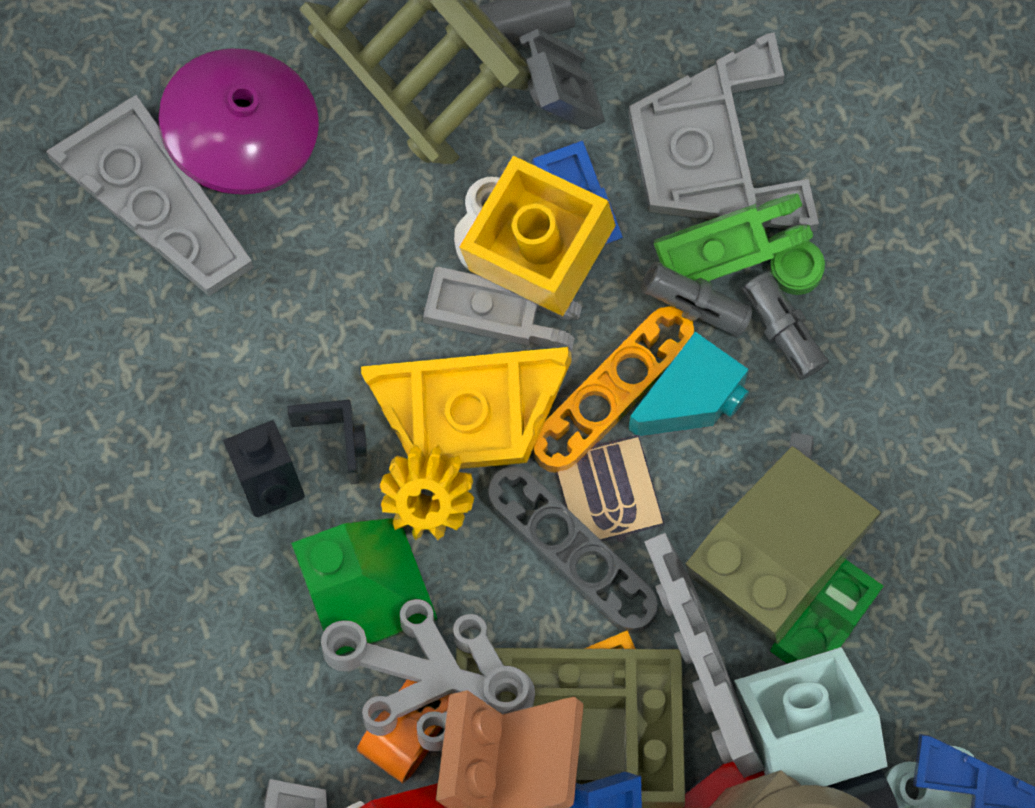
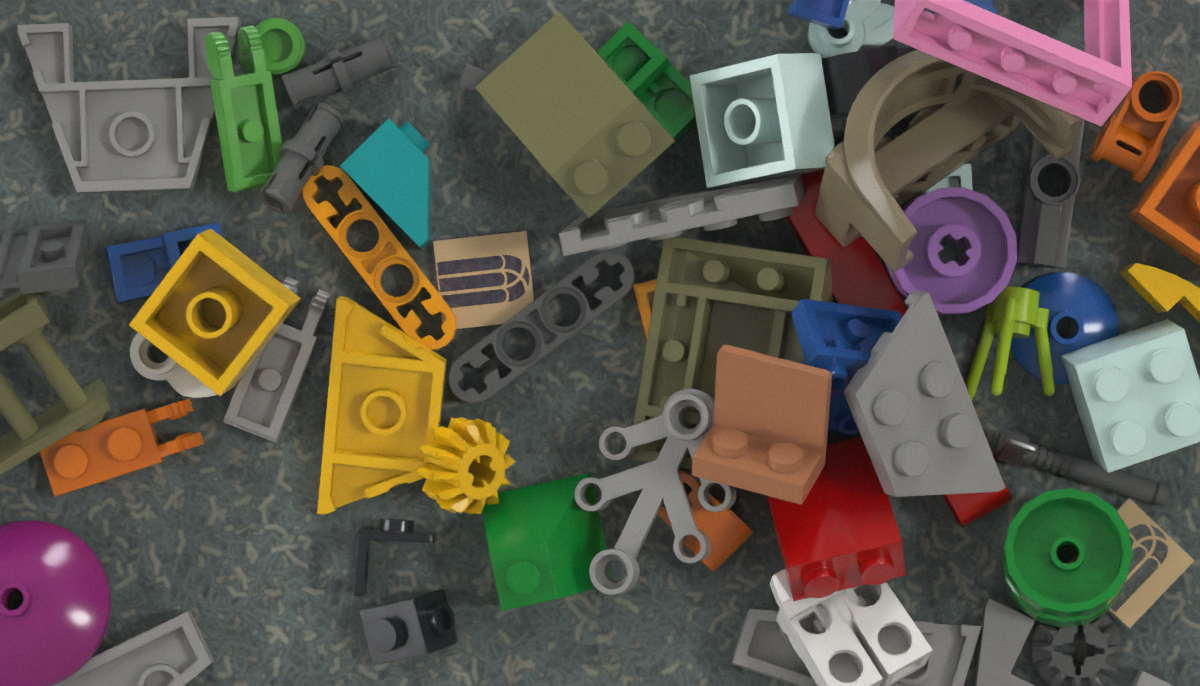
camera: 85 degrees left, 15 degrees up
(396, 178) = (114, 448): none -> orange hinge

